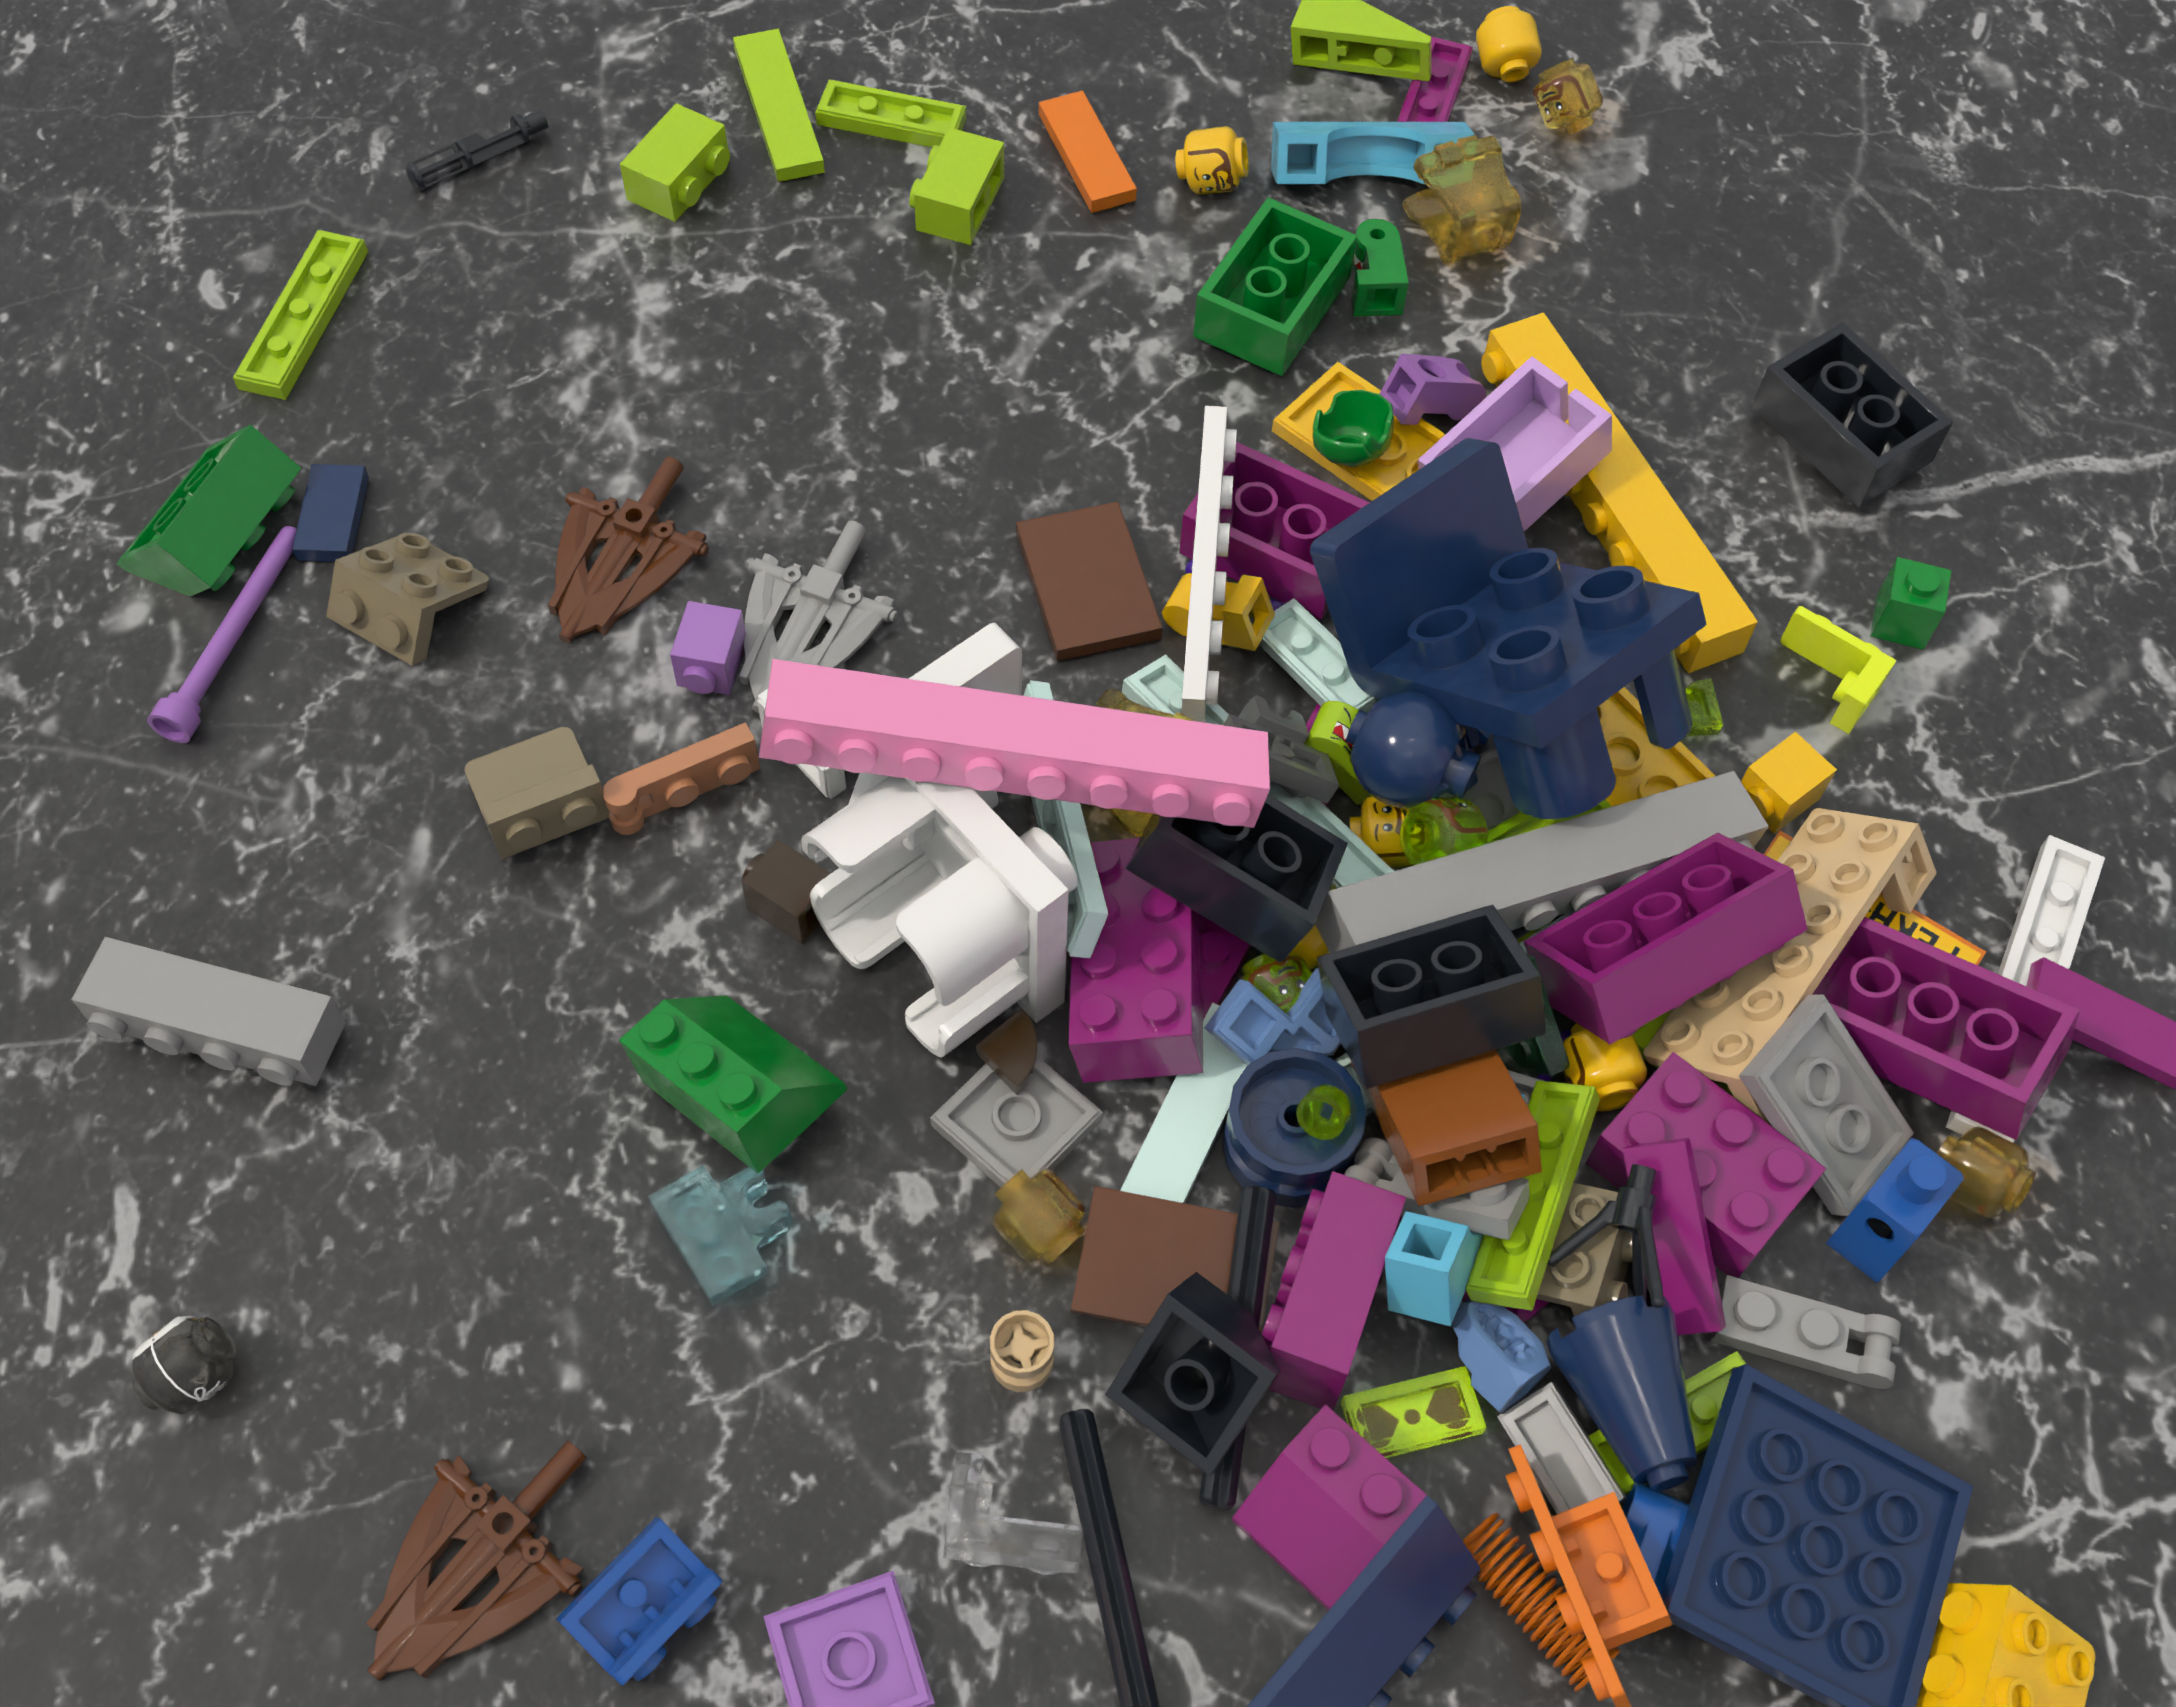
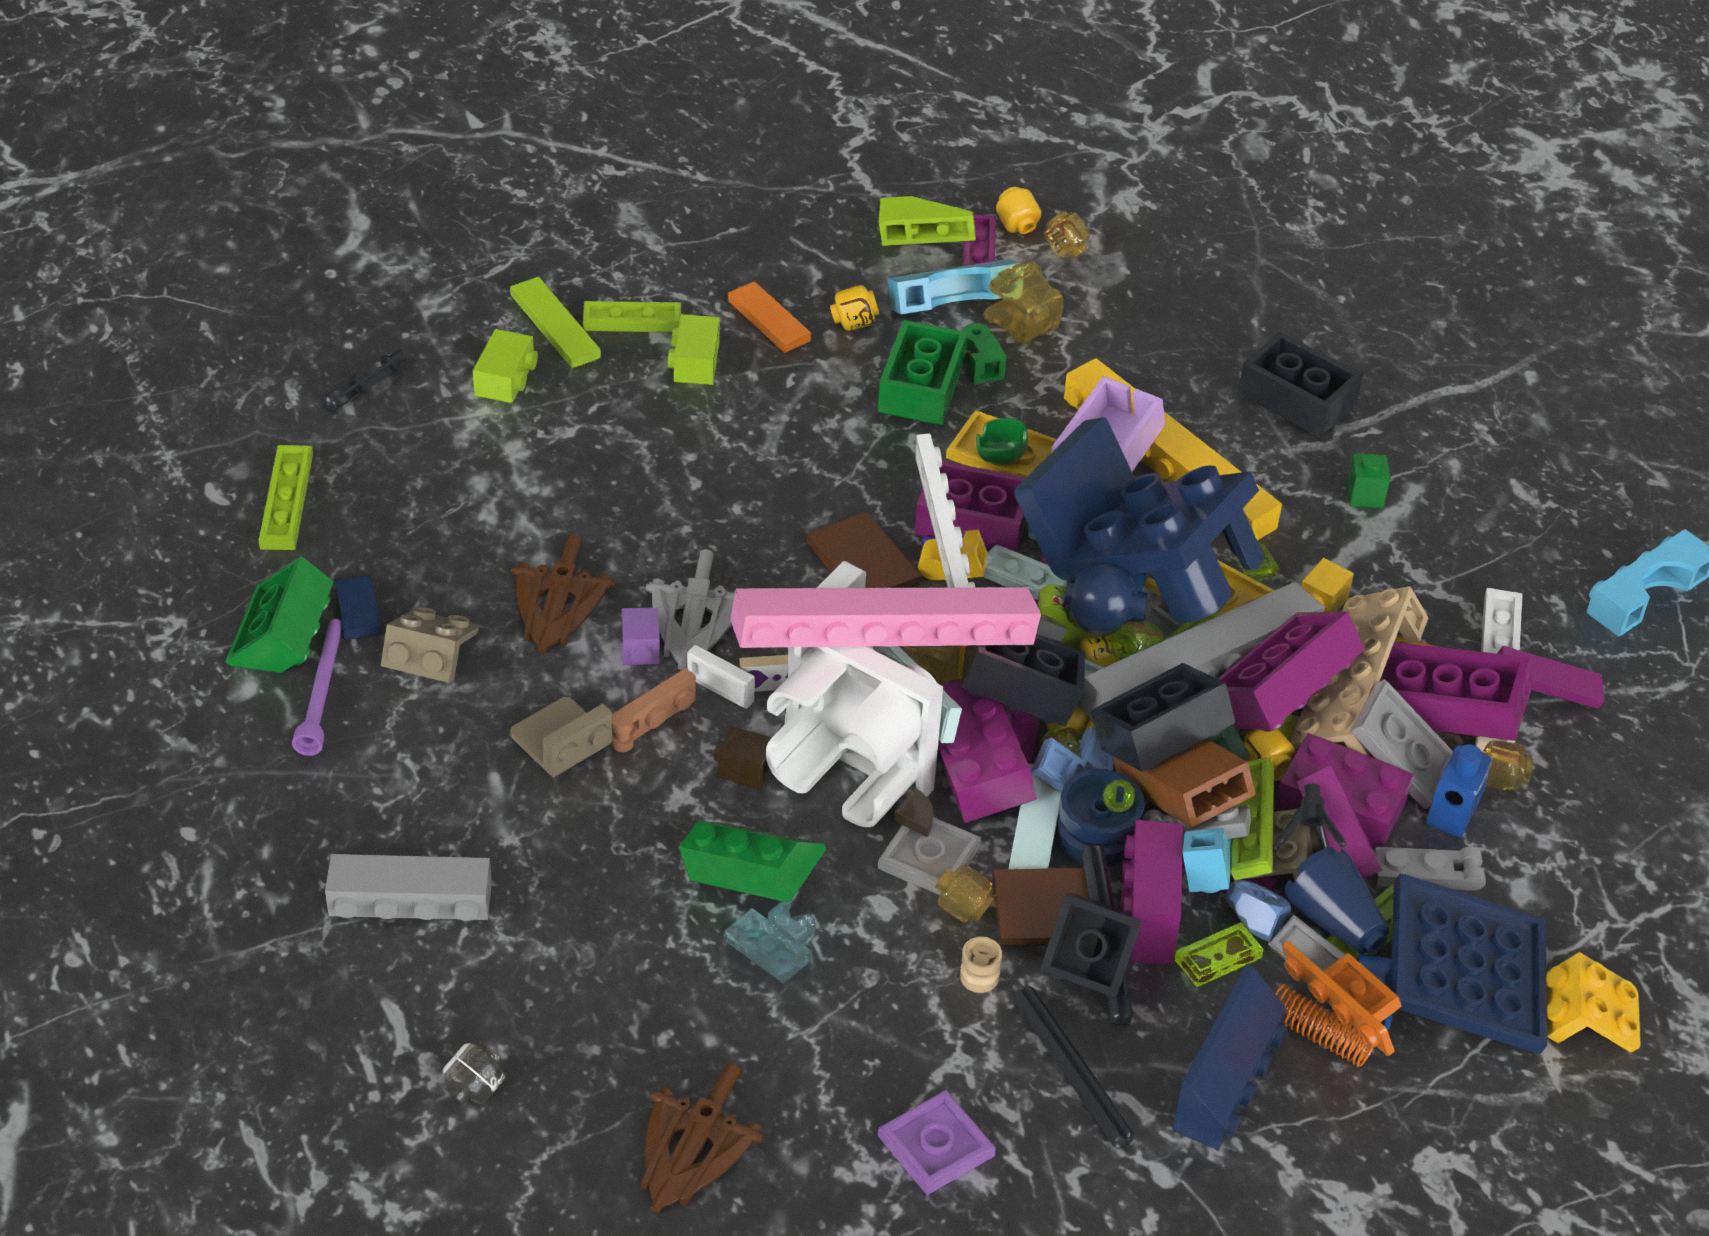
camera: 15 degrees left, 15 degrees down
(641, 1603) = (804, 1133): blue bracket -> none
(998, 1540) = (982, 1039): clear bracket -> none
(1327, 1506) = (1183, 1000): magenta slope -> none
(1431, 386) = (1042, 410): medium lavender leg -> none
(1844, 655) = (1336, 516): neon yellow bracket -> none

